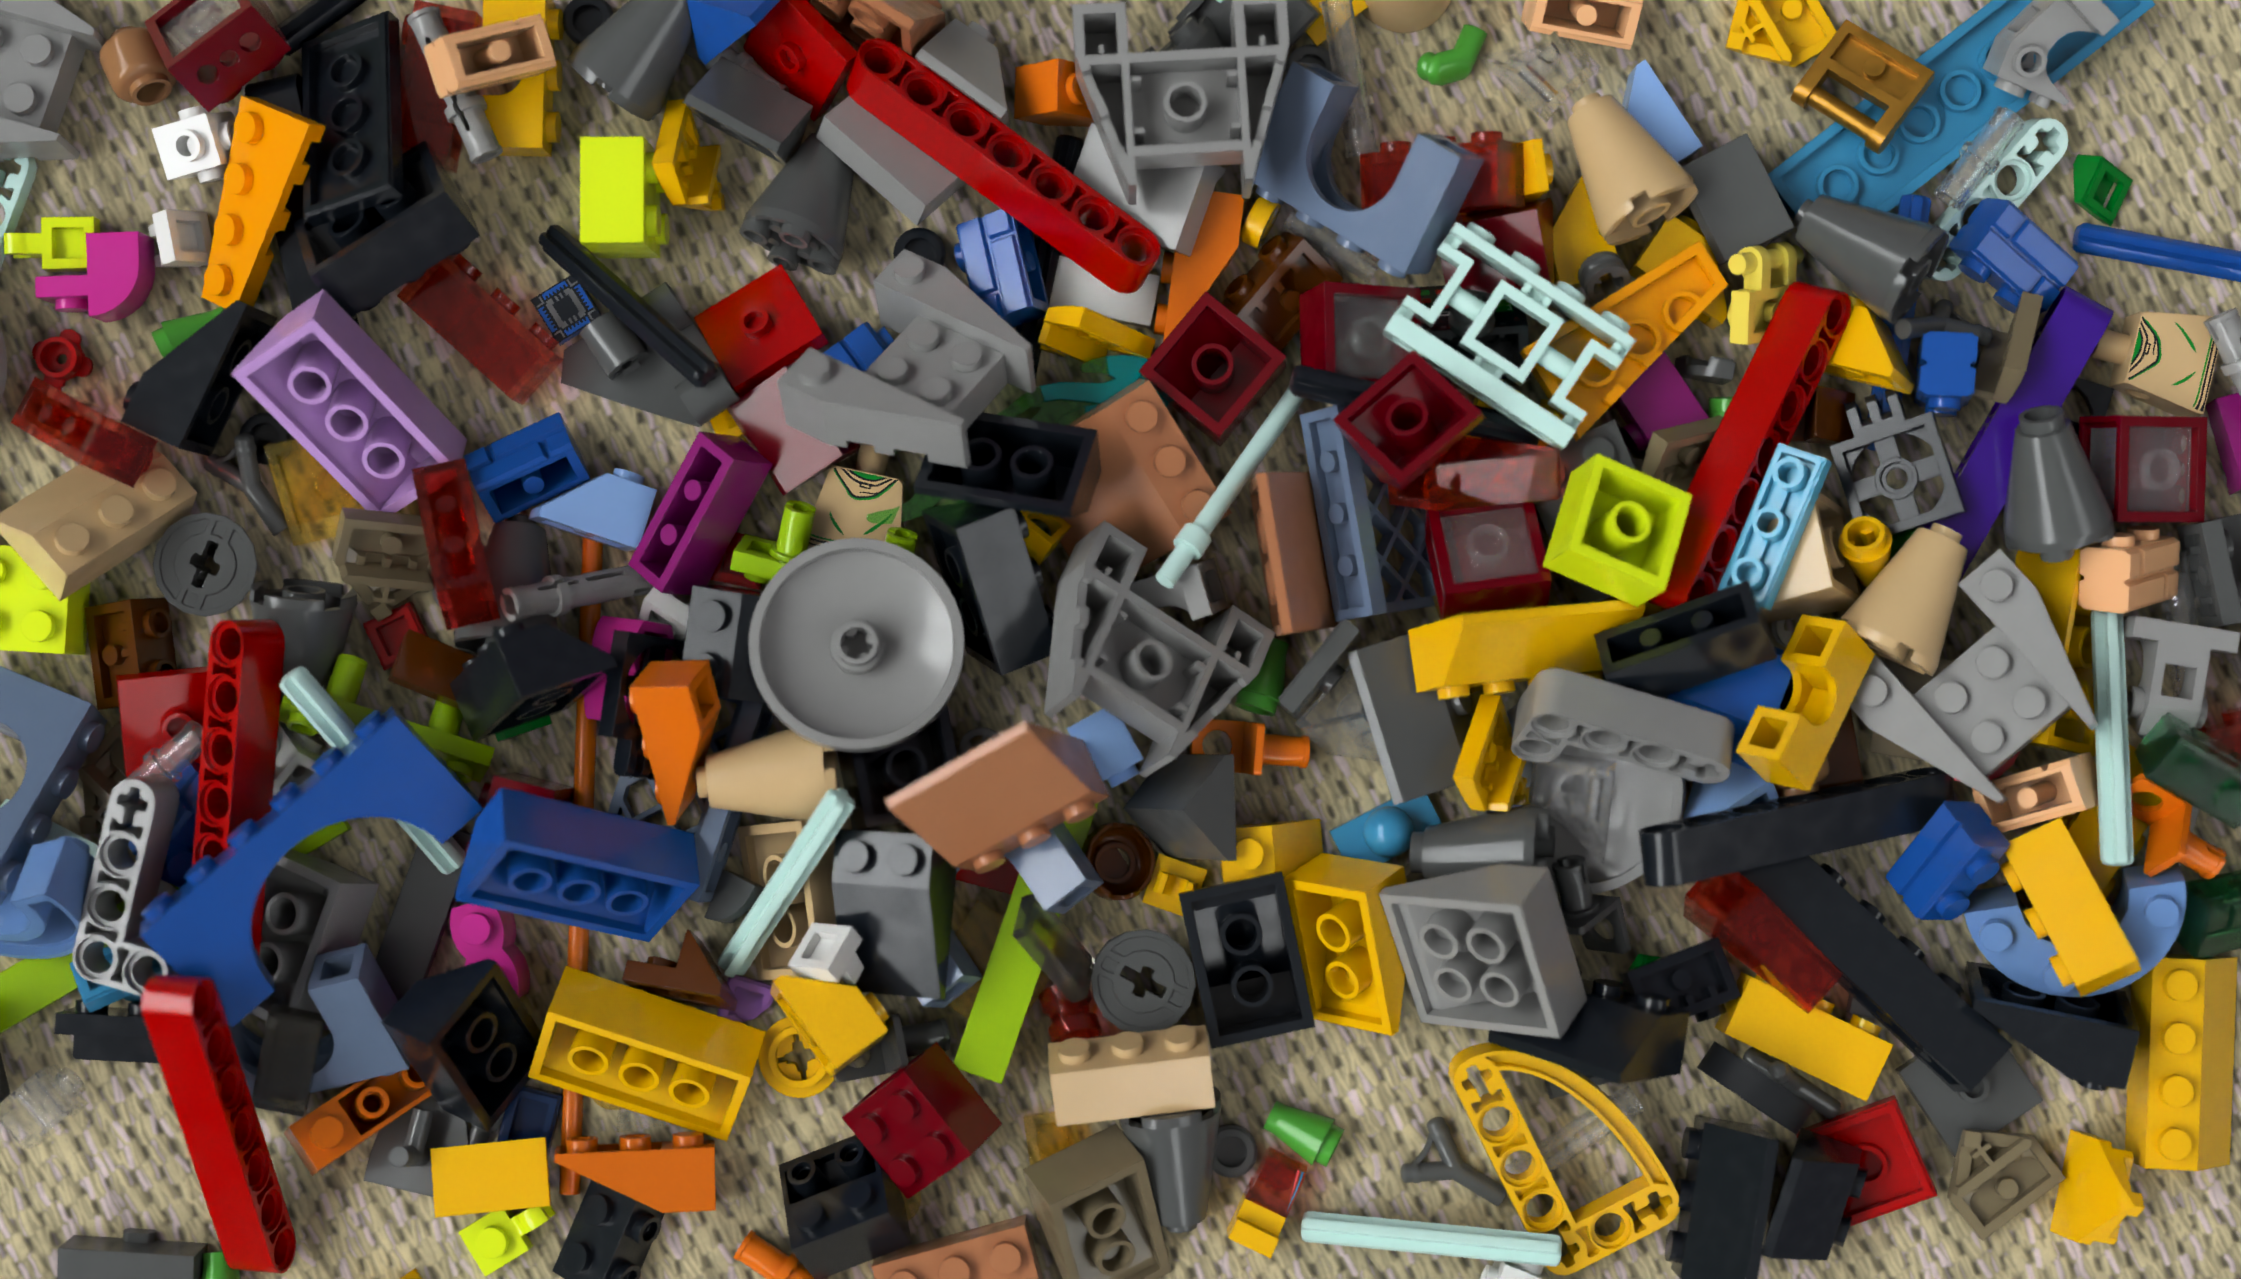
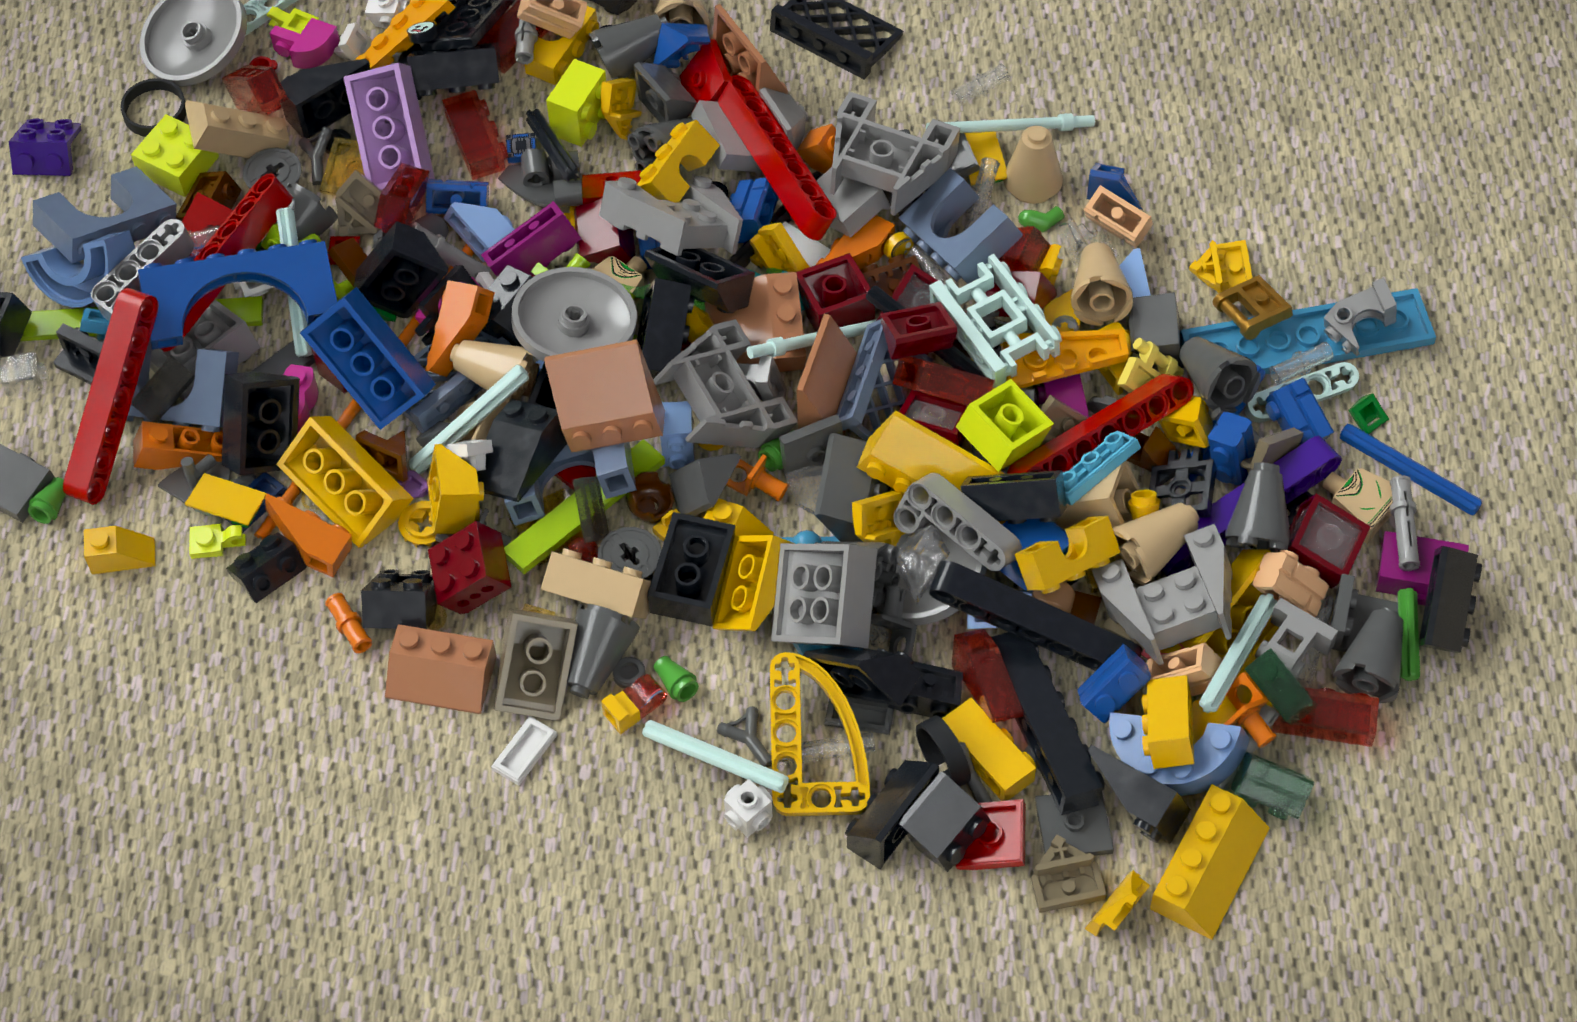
camera: 25 degrees right, 30 degrees down
(299, 203) = (422, 32): none -> black tile
(847, 304) = (688, 146): none -> yellow arch

